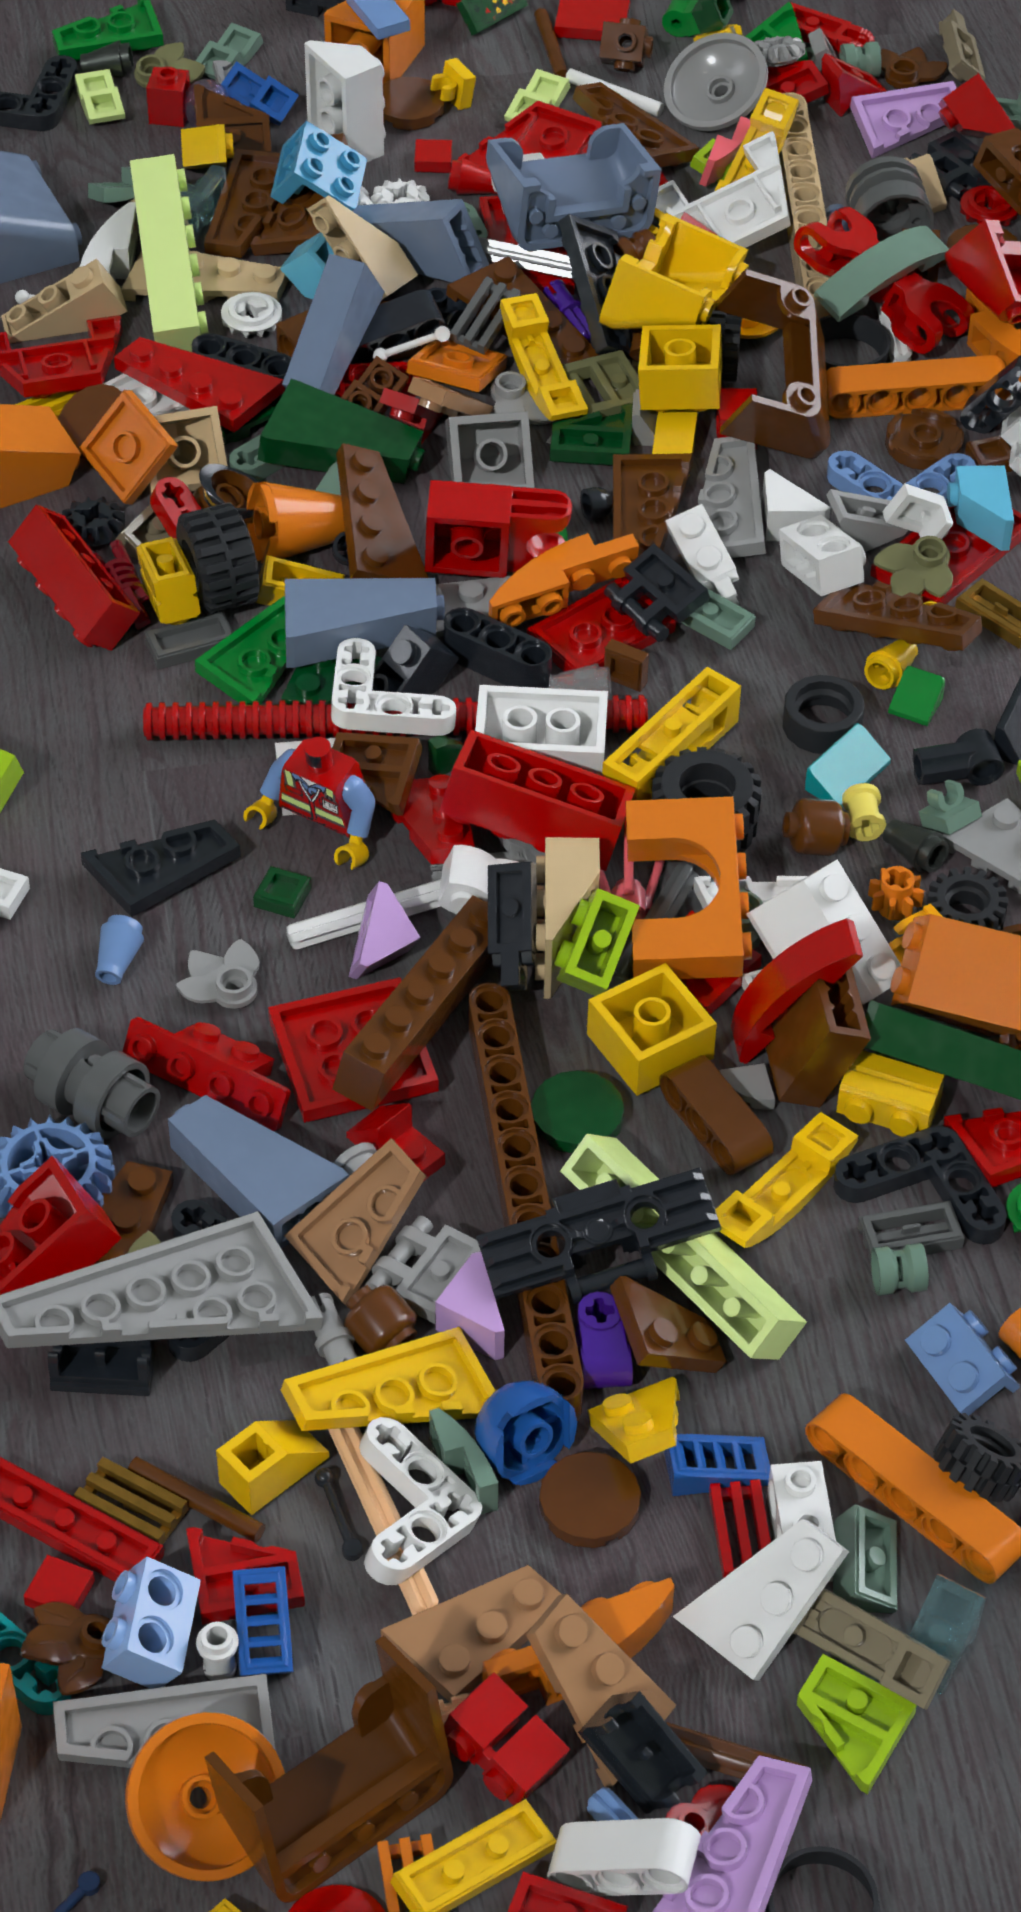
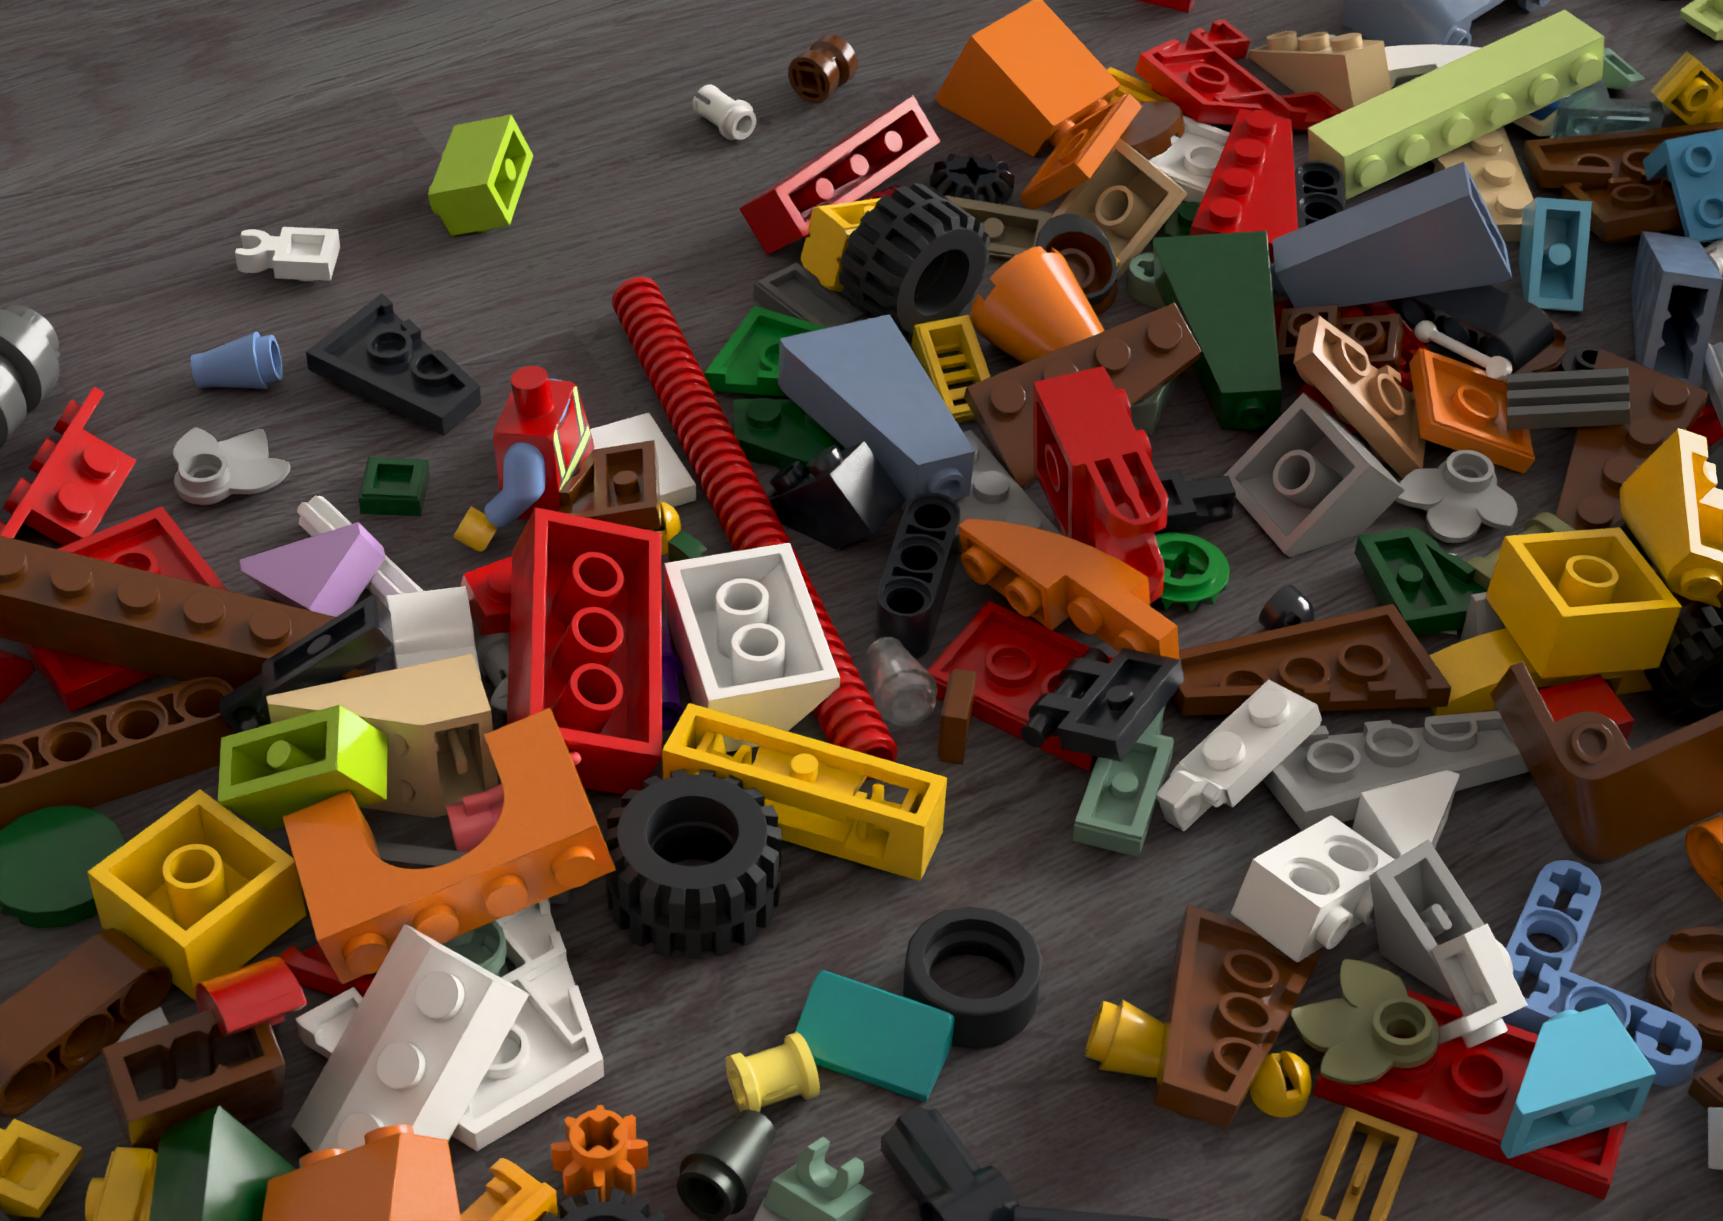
camera: 70 degrees right, 5 degrees down
(167, 509) = (1003, 220): red beam -> none
(361, 241) = (1594, 261): tan slope -> none
(420, 712) = (697, 447): white beam -> none
(538, 360) = (1528, 481): yellow slope -> none
(816, 827) = (707, 1015): reddish brown head -> none
(917, 695) = (1079, 1101): green slope -> none

